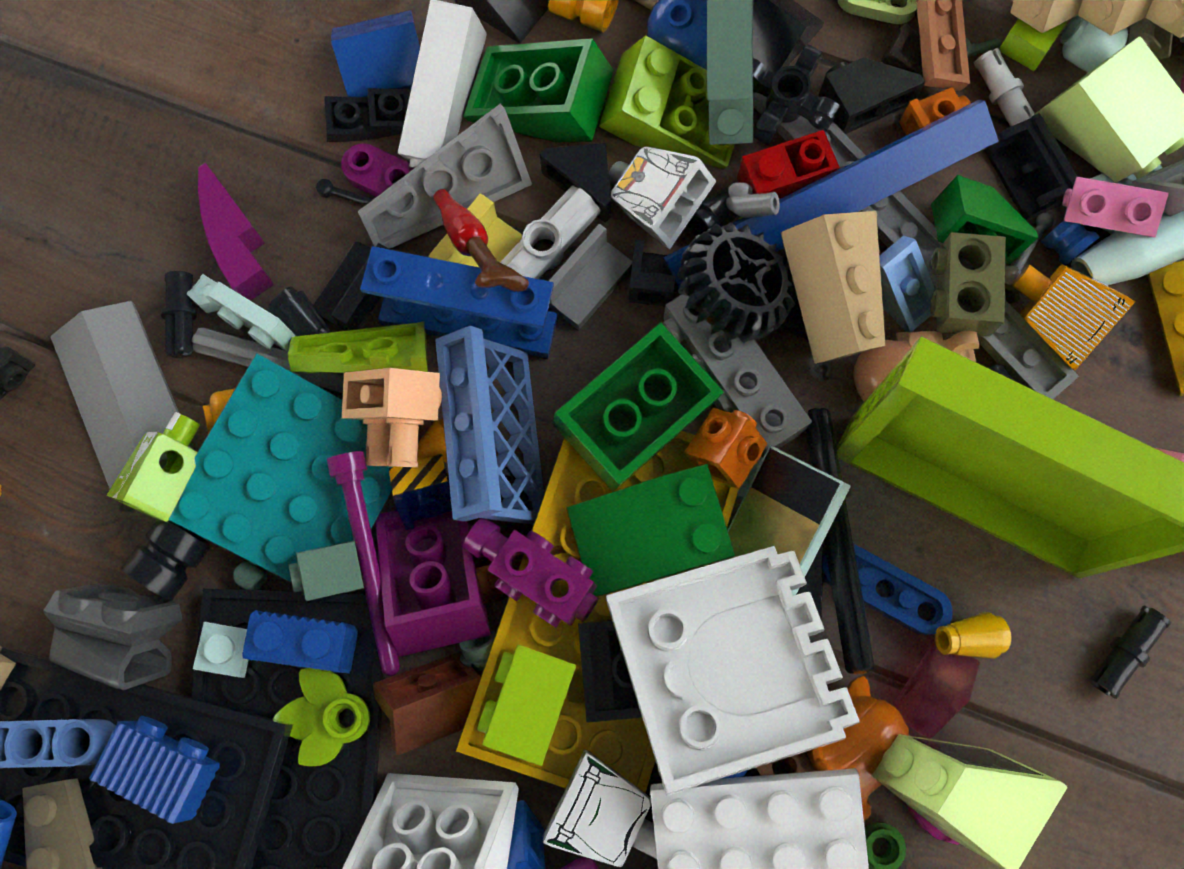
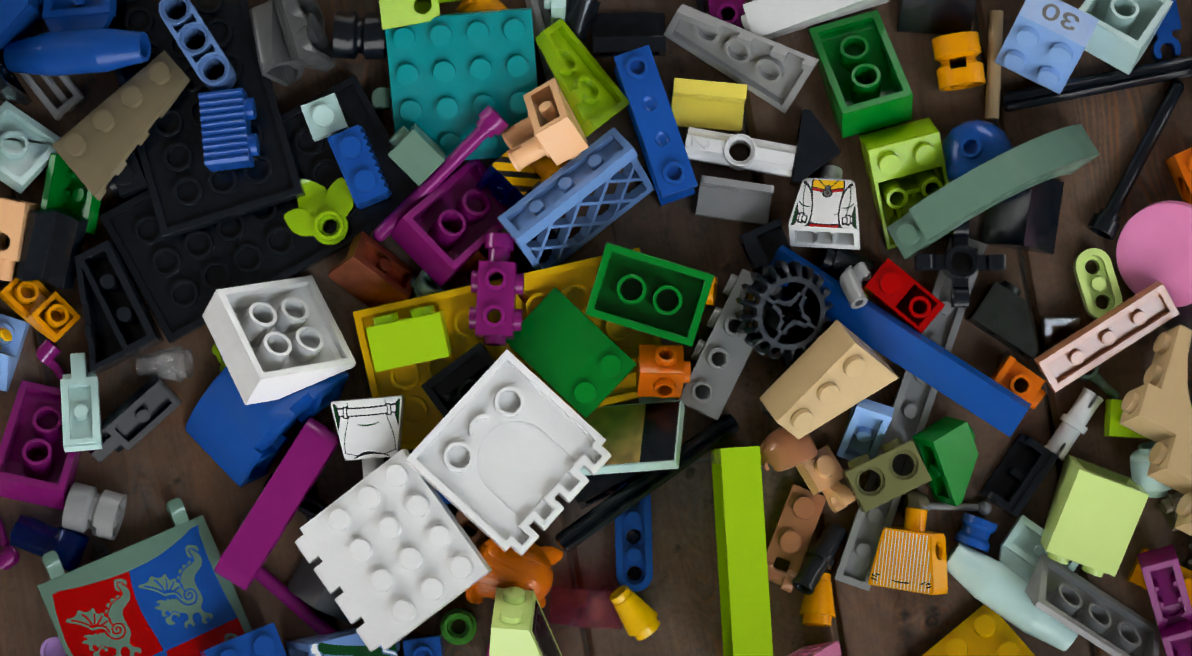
camera: 60 degrees right, 10 degrees up
(471, 239) = (699, 106): piece -> none
(1114, 206) = (1005, 547): bright pink hinge -> none

